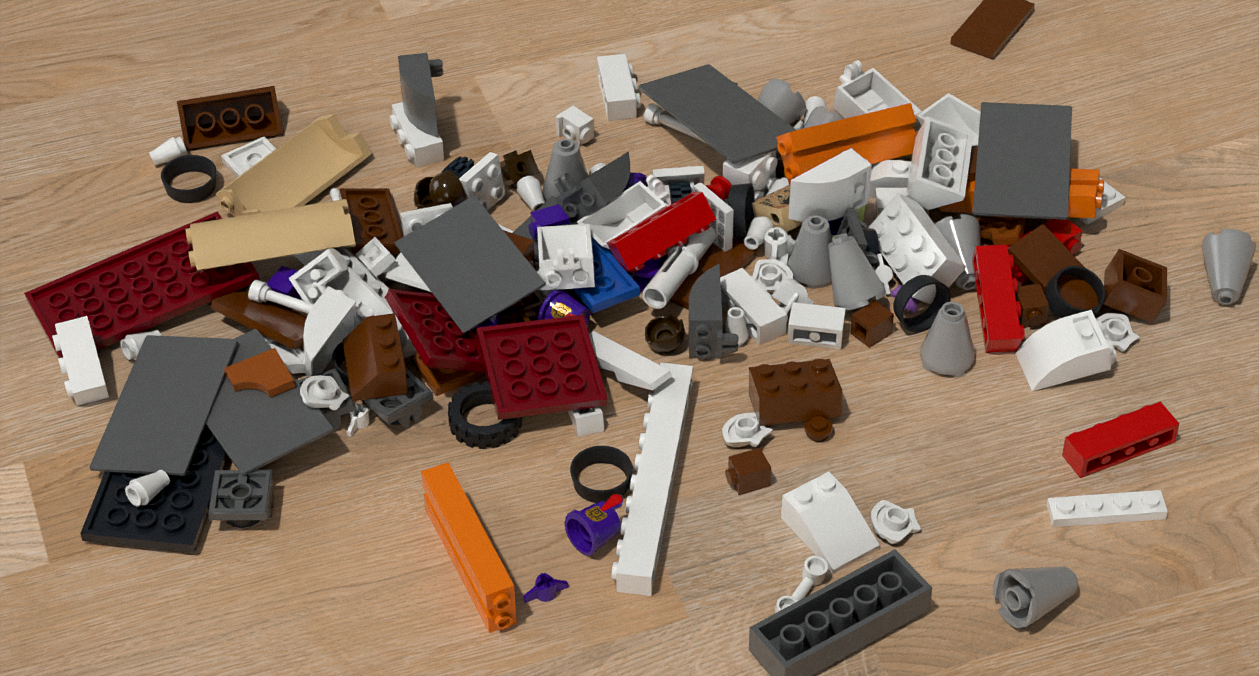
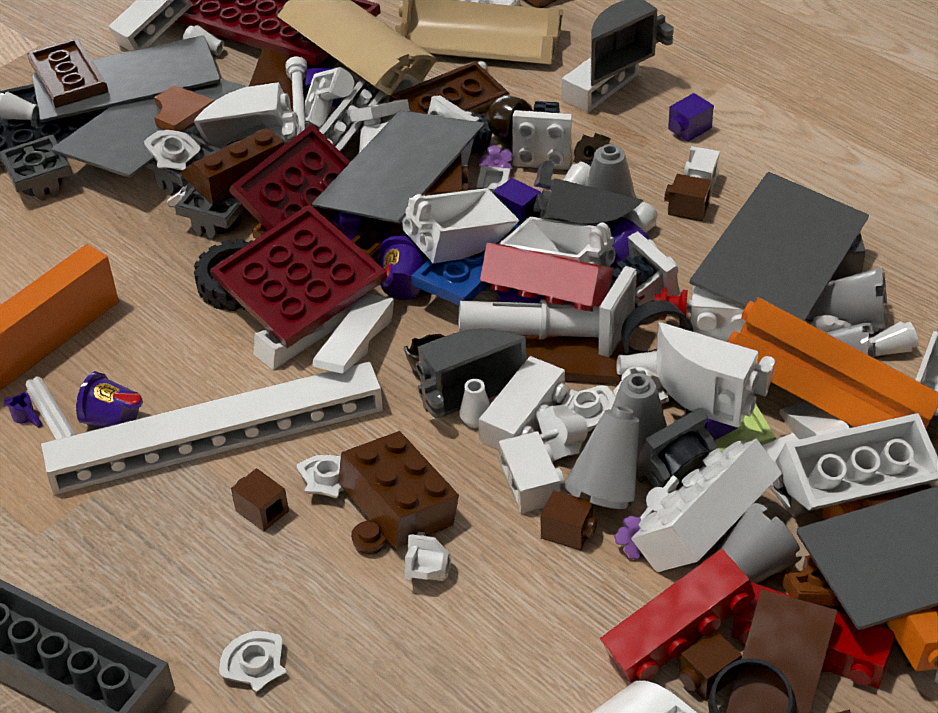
camera: 65 degrees right, 0 degrees up
(121, 439) = (67, 72): none -> reddish brown tile
(509, 107) = (690, 117): none -> dark purple brick
(563, 570) = (49, 408): none -> white axle
(595, 455) = (189, 366): black tyre -> none
(599, 143) = (688, 197): none -> reddish brown brick
(618, 87) = (806, 165): white brick -> none
(812, 575) = (134, 611): white bar -> none
(828, 522) = (216, 598): white slope -> none
(862, 403) = (426, 558): none -> white piece
(925, 320) = (602, 561): black tyre -> none
(948, 343) = (570, 601): light grey cone -> none

